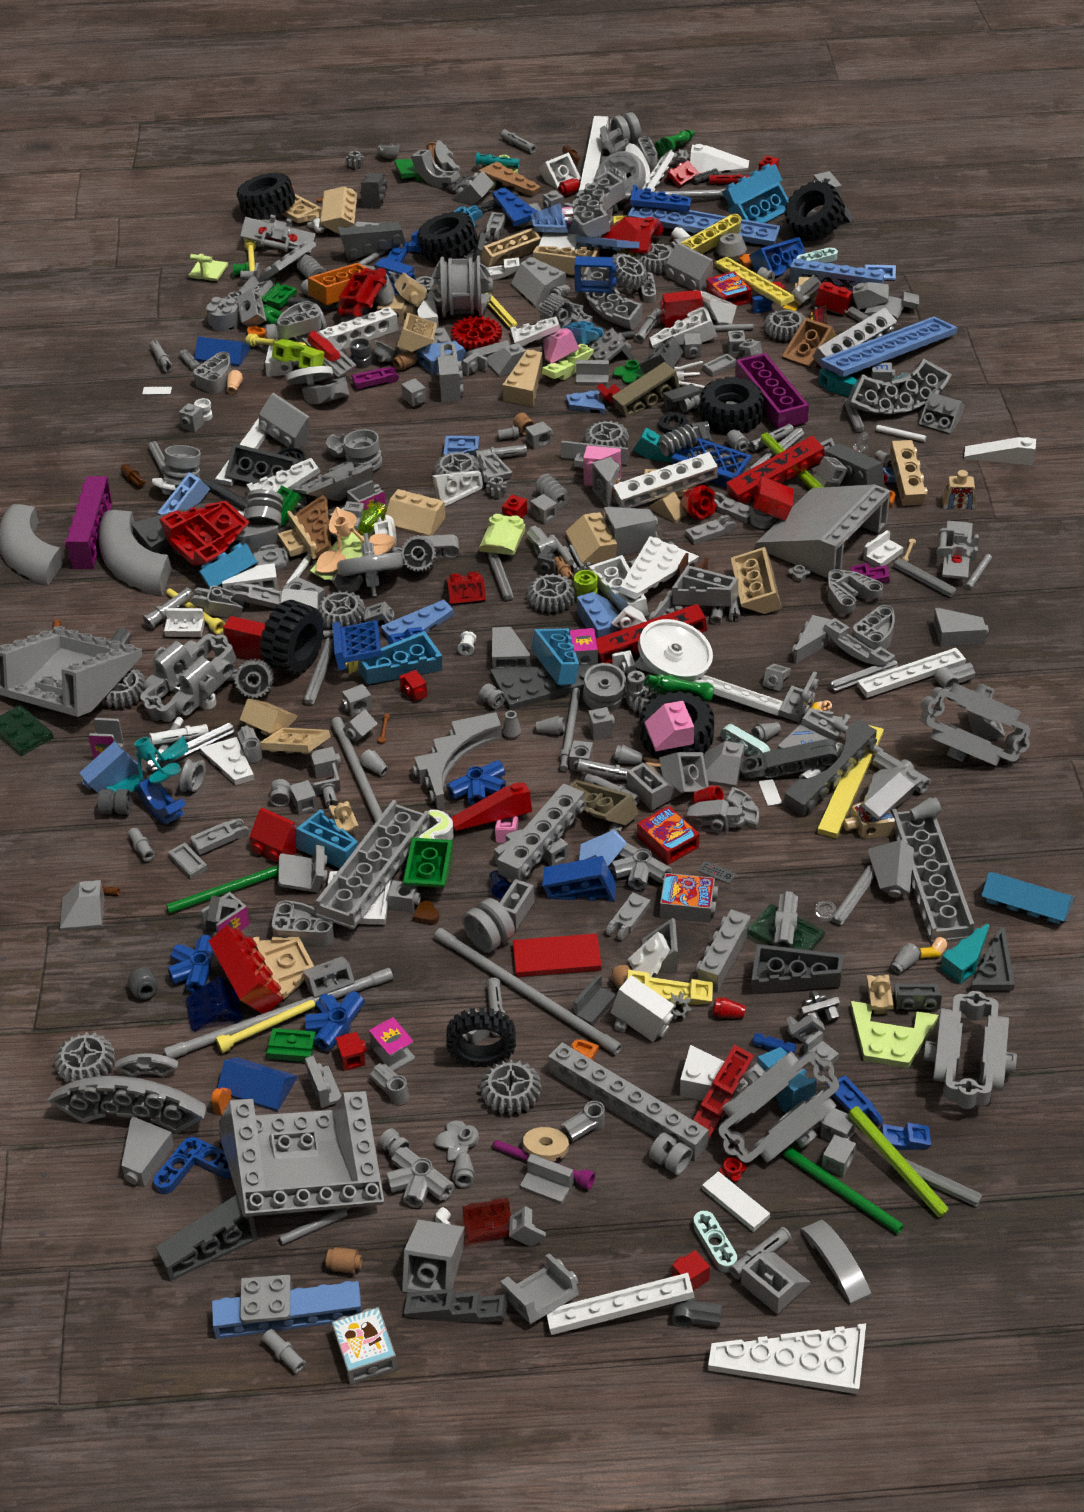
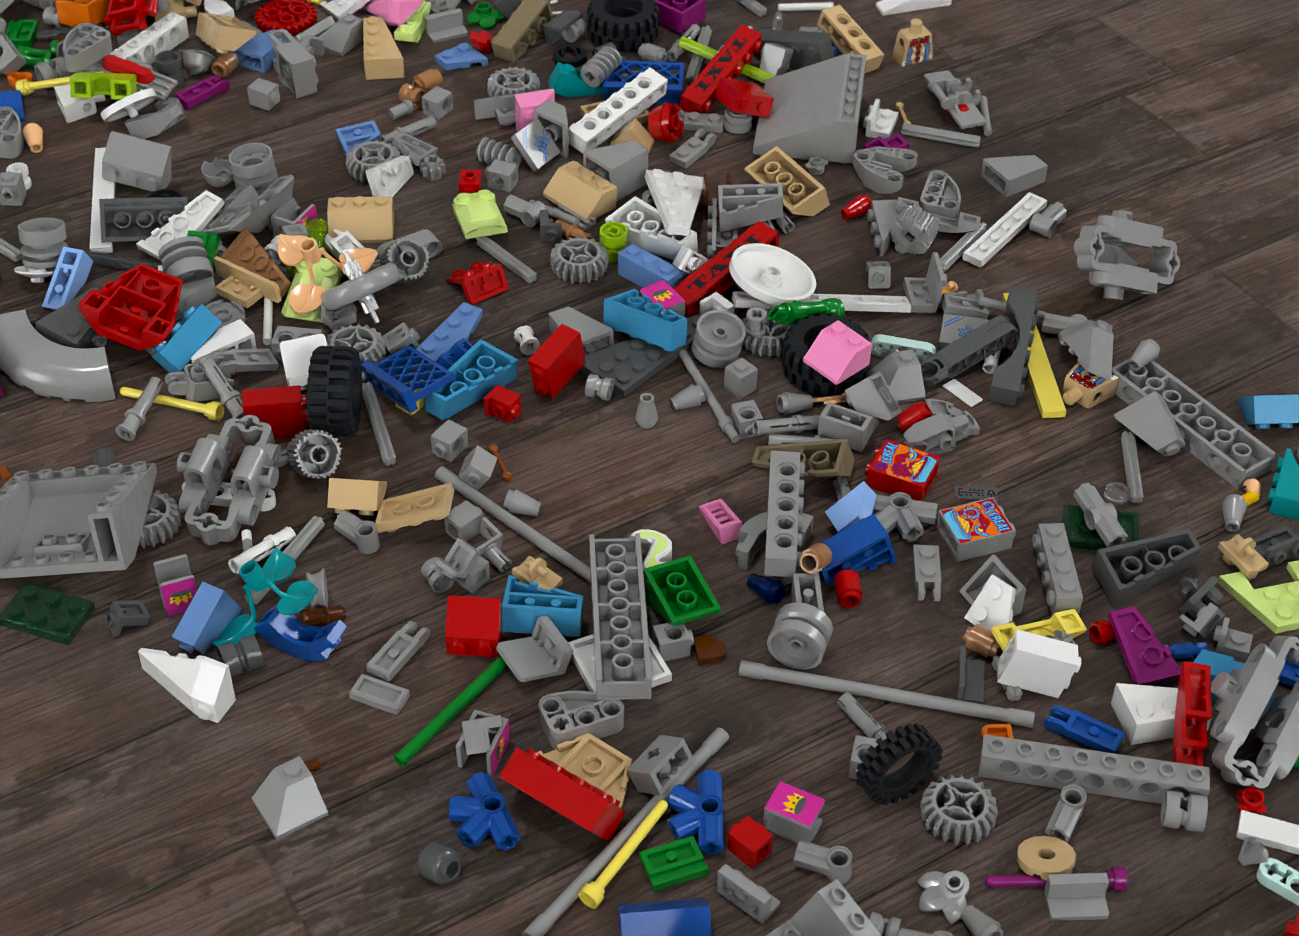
camera: 30 degrees left, 0 degrees up
(65, 747) = (126, 614): none -> dark grey bracket
(75, 809) = (197, 683): none -> white wedge
(141, 844) = (308, 695): light grey pin -> none
(183, 792) = (321, 615): none -> reddish brown axle
(184, 622) = (173, 419): white bracket -> none
(212, 1001) = (541, 854): clear blue bracket -> none
(226, 602) = (229, 397): none -> light grey pin
(230, 759) = (345, 557): white wing -> none
(292, 786) = (459, 560): none -> light grey bracket
(447, 751) = (601, 444): light grey arch -> none
(468, 666) = (556, 361): none -> red brick
(477, 782) = (659, 485): blue piece -> none
(503, 804) = (702, 503): red wedge -> none
(536, 873) = (815, 558): none -> medium nougat brick
(545, 414) = (428, 79): none -> medium nougat brick
(557, 906) = (848, 588): none -> red brick
(557, 955) = (886, 642): red tile -> none
(583, 490) = (535, 144): none -> light grey tile
(650, 1072) = (1084, 729): none -> blue hinge
(700, 1202) = (1252, 852): none -> light grey tile
(737, 1027) = (1142, 651): none -> magenta wing
(765, 730) = (913, 330): light grey cone -> none
(801, 616) = (857, 207): none -> red cone
(826, 650) = (913, 230): none -> light grey brick

